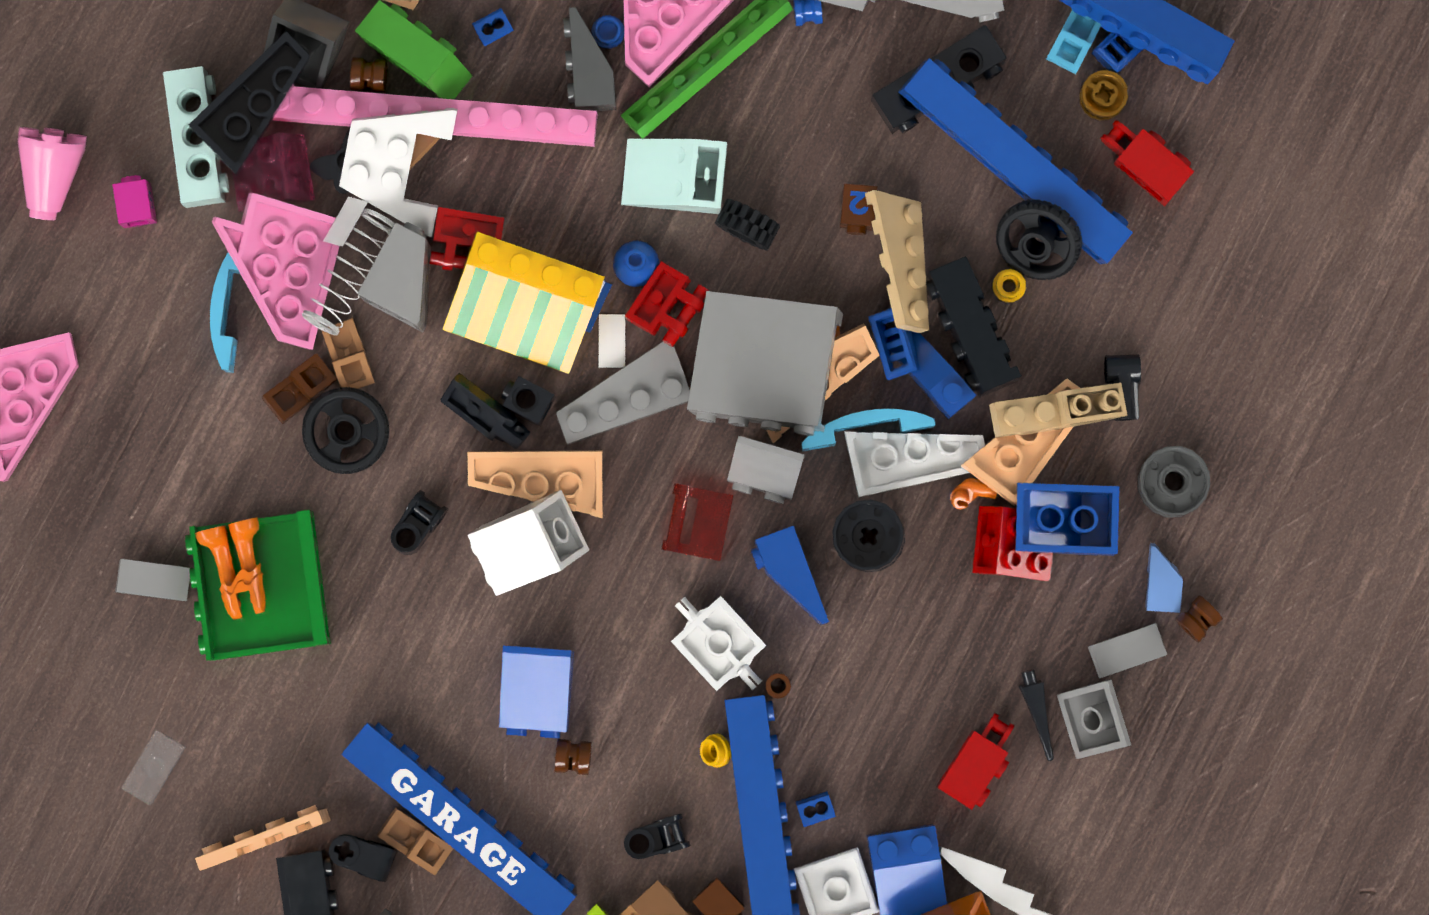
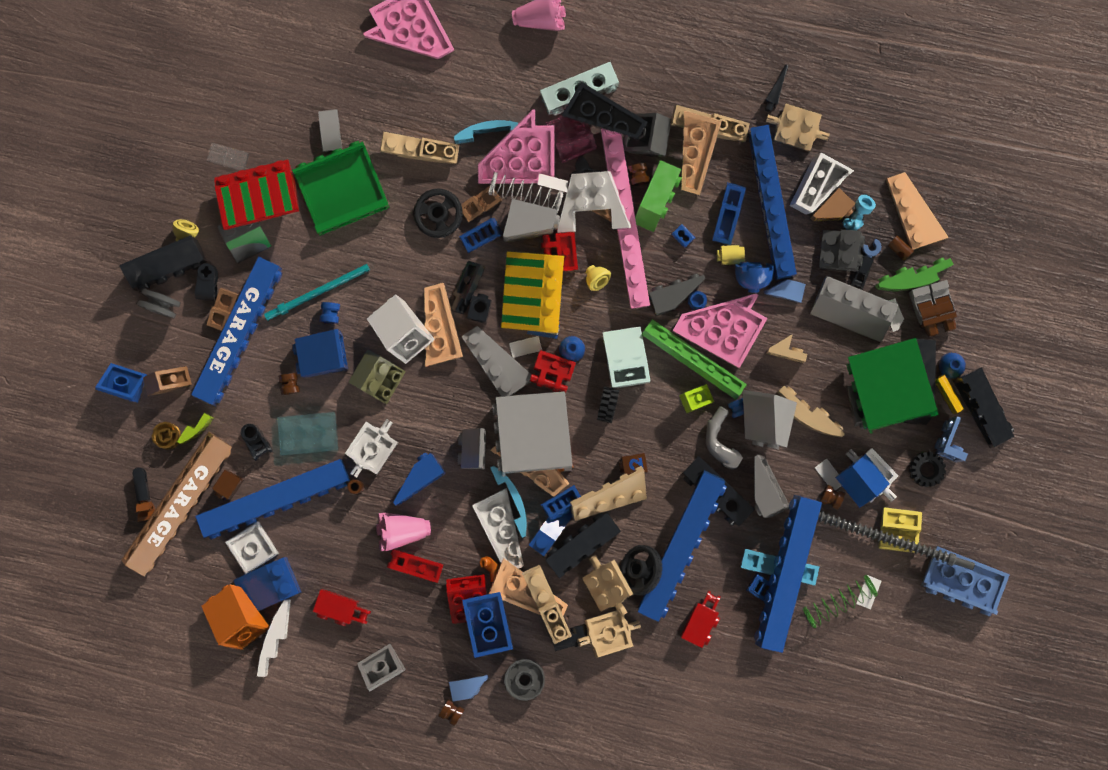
camera: 70 degrees right, 0 degrees up
(134, 202) = (535, 65): dark pink brick -> none
(226, 434) = (419, 149): none -> tan slope
(233, 730) = (256, 194): none -> red slope
(248, 842) = (199, 219): light nougat wing -> none
(249, 576) = (342, 181): orange piece -> none
(261, 873) = (184, 228): none -> light yellow brick
(299, 388) = (455, 182): reddish brown slope -> none
(299, 771) = (245, 240): none -> dark grey slope
(396, 339) = (498, 232): none -> blue slope
(418, 522) = (397, 266): black piece -> none
(440, 736) = (284, 307): none -> teal bar
(469, 657) = (329, 312): none -> blue wheel
(526, 189) = (597, 277): none -> light yellow brick
(599, 604) = (377, 376): none -> olive slope
(665, 747) = (307, 433): none -> clear light blue plate
(708, 526) = (436, 426): clear red plate -> none
(715, 750) = (311, 461): yellow plate -> none
(774, 76) = (696, 398): none -> lime slope
(811, 801) = (296, 521): blue piece -> none
(849, 535) = (439, 519): black wheel -> none
(871, 628) = (400, 530): none -> bright pink cone
(888, 46) = (728, 457): none -> light grey piece
(937, 617) = (416, 566): none -> red plate
(1014, 276) = (612, 553): yellow plate -> none
(1034, 696) = (385, 631): black piece -> none
(1051, 302) = (607, 585): none -> tan plate
(1103, 95) = (733, 586): pearl gold wheel -> none
(1127, 650) = (423, 677): light grey slope -> none
(1131, 321) = (608, 633): none -> tan plate

